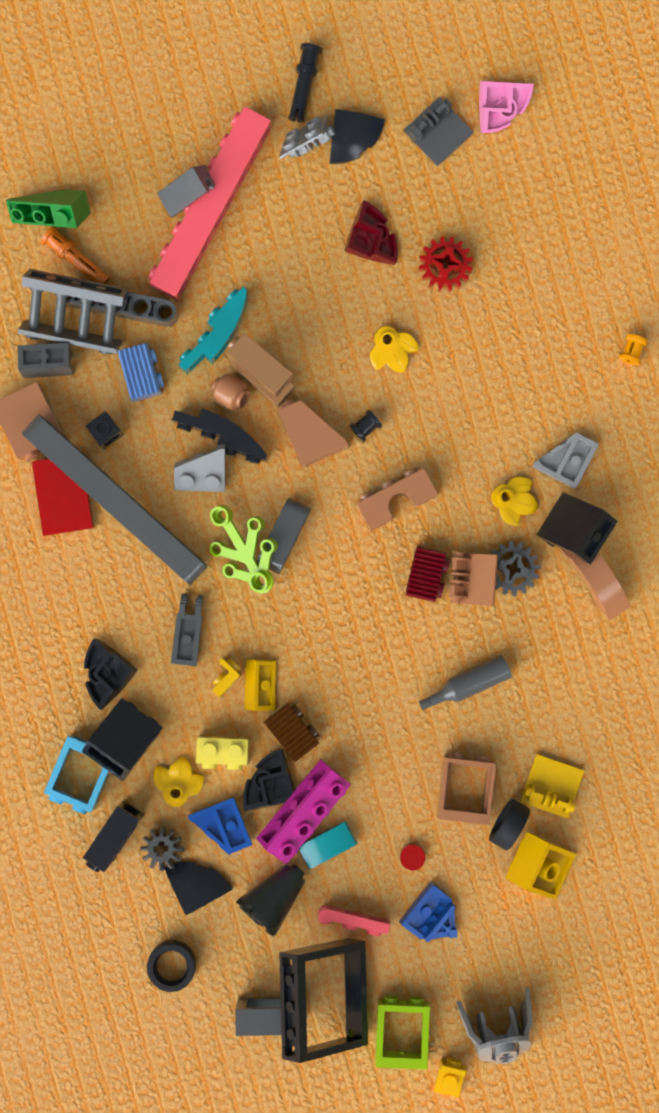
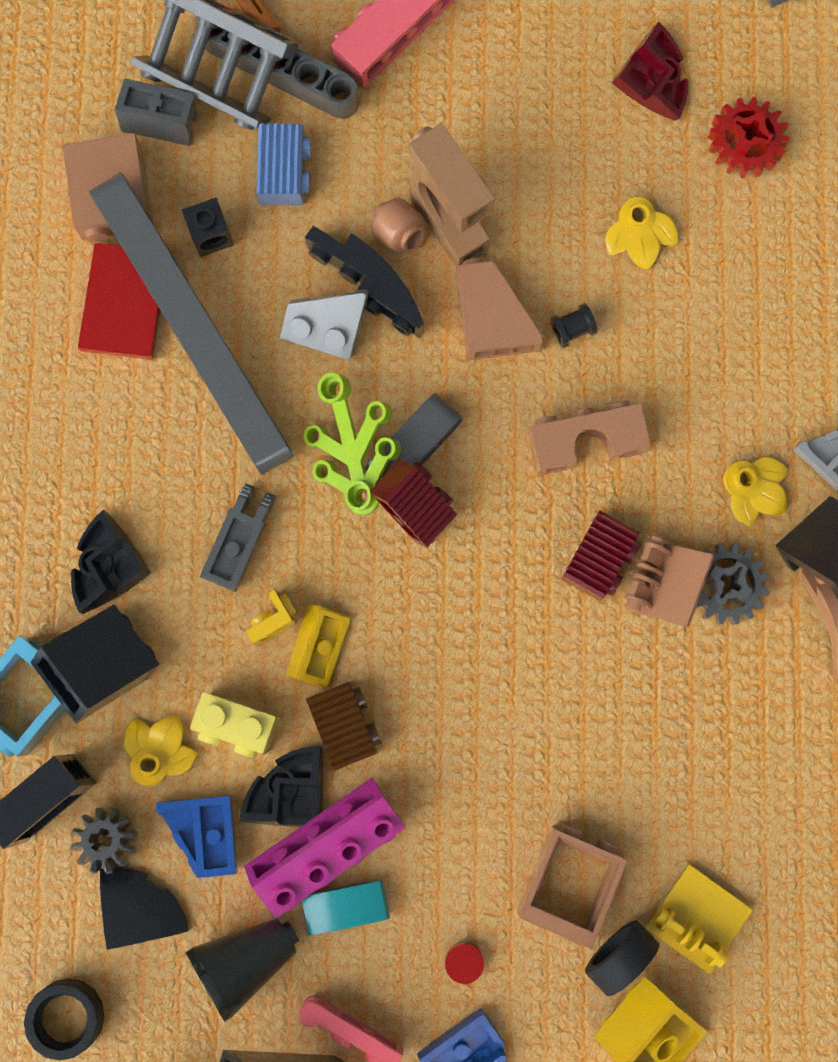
camera: 20 degrees right, 5 degrees down
(224, 324) = (391, 153): teal slope -> none
(296, 576) = (414, 501): none -> dark red brick
(470, 682) = (622, 730): dark grey piece -> none

